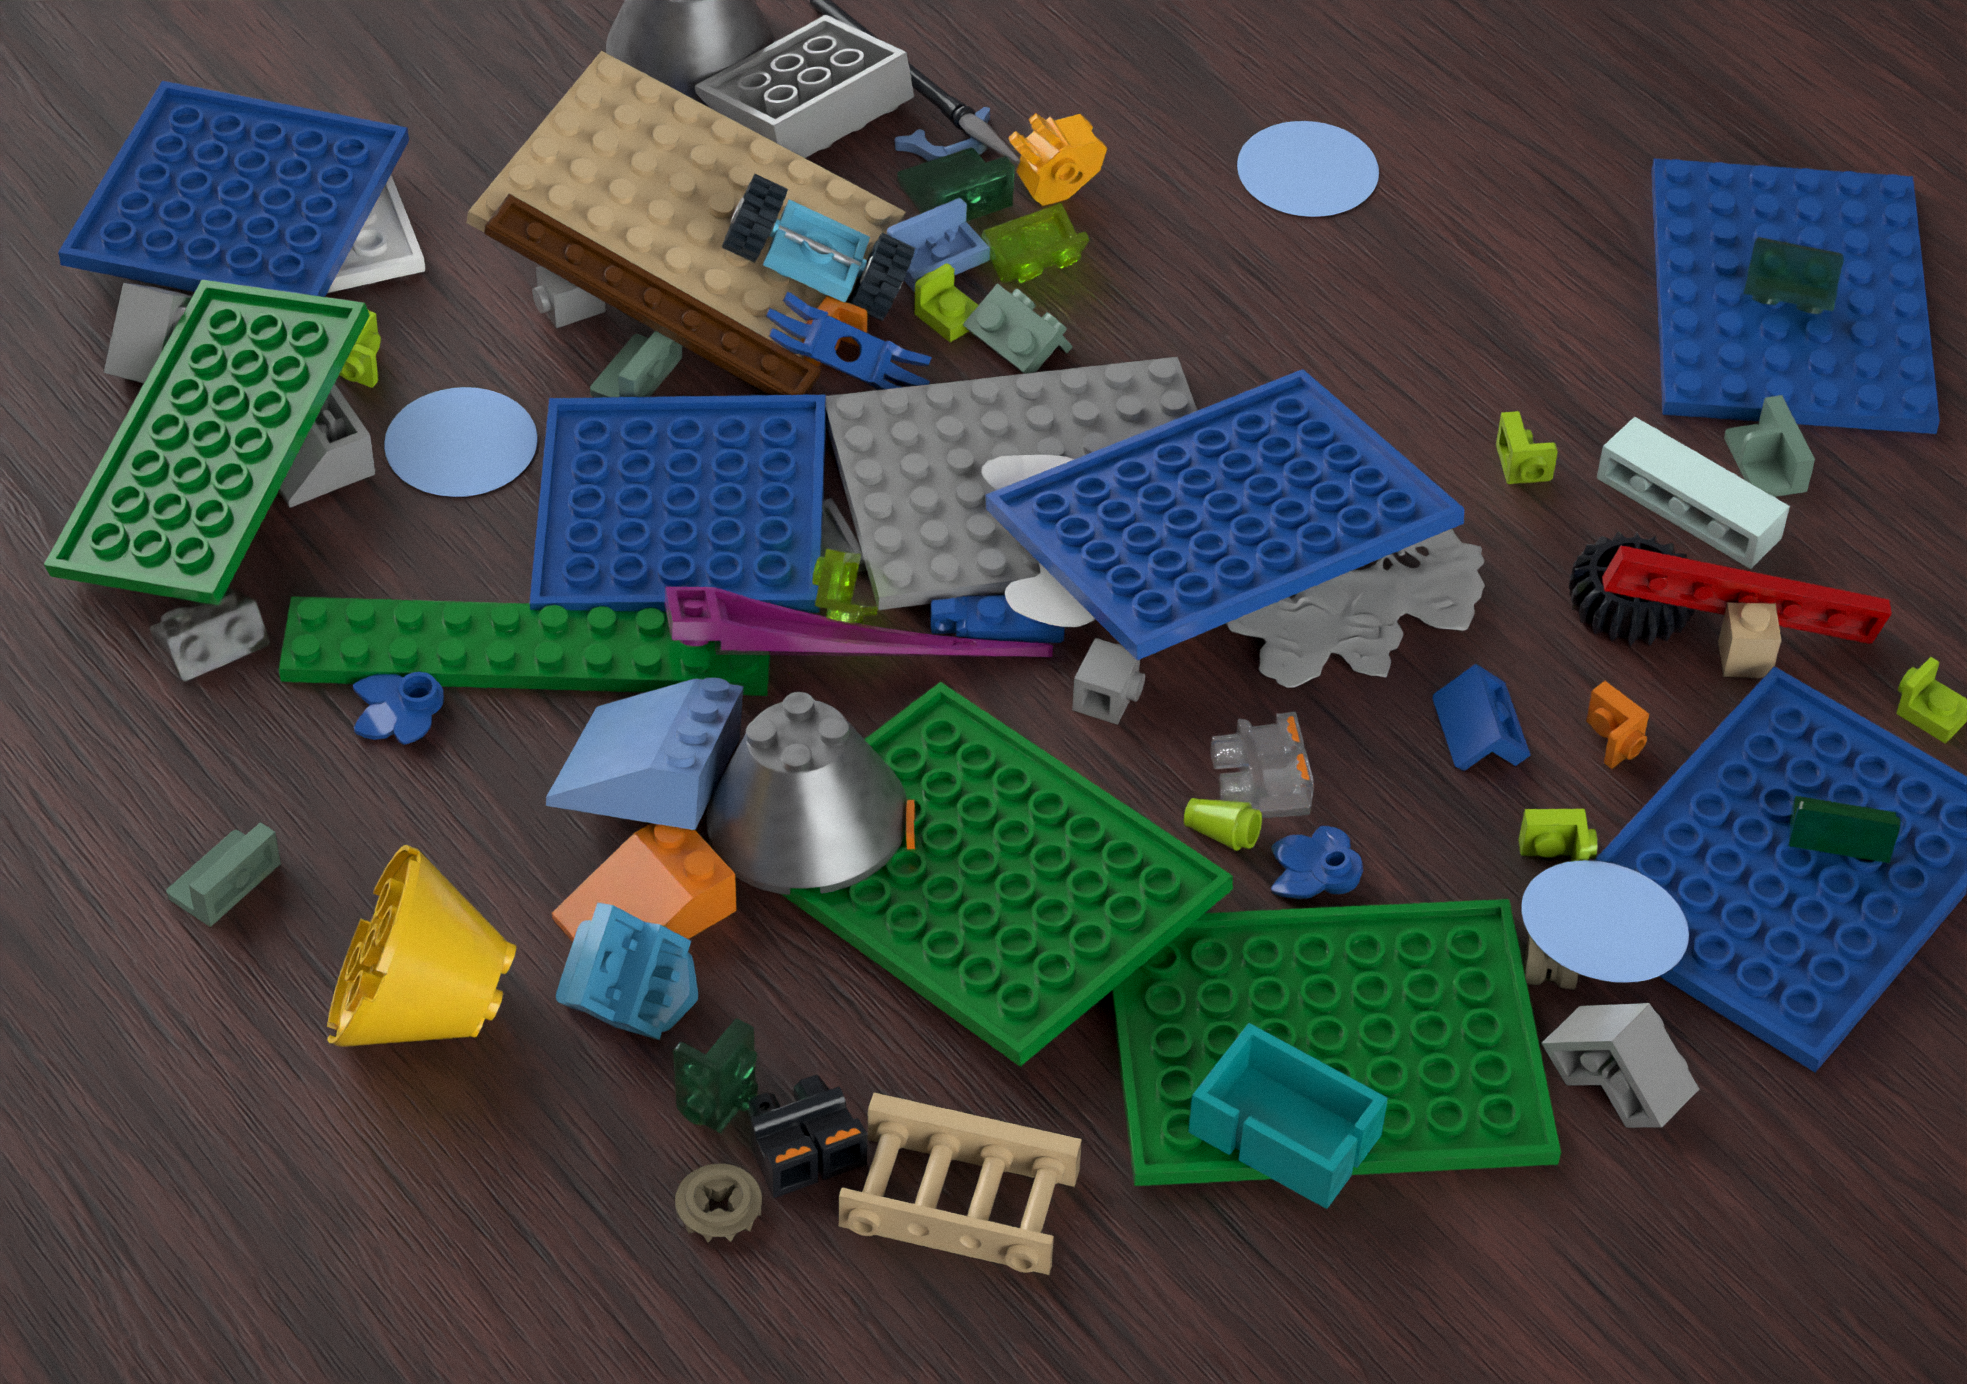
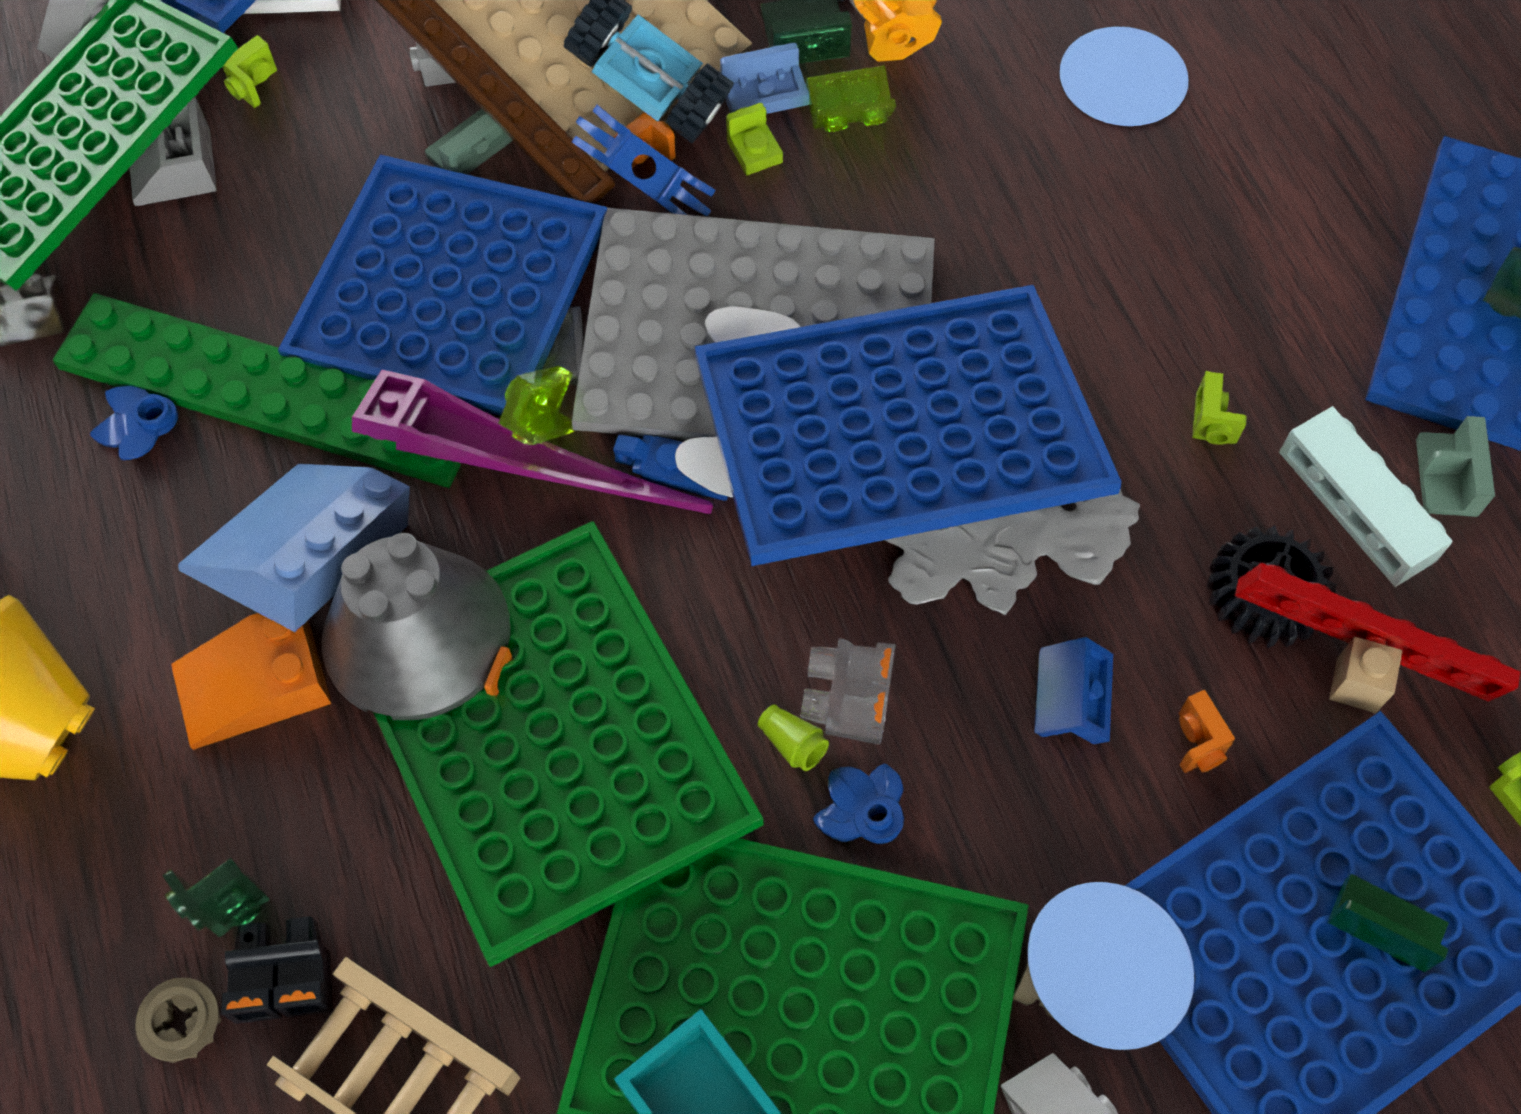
camera: 20 degrees right, 15 degrees up
(460, 442) = (301, 176): light blue sticker -> none
(629, 973) = (186, 761): dark azure piece -> none
(1015, 331) = (803, 179): sand green bracket -> none
(1107, 682) = (731, 566): light grey brick -> none
(1557, 833) = (1099, 840): lime bracket -> none

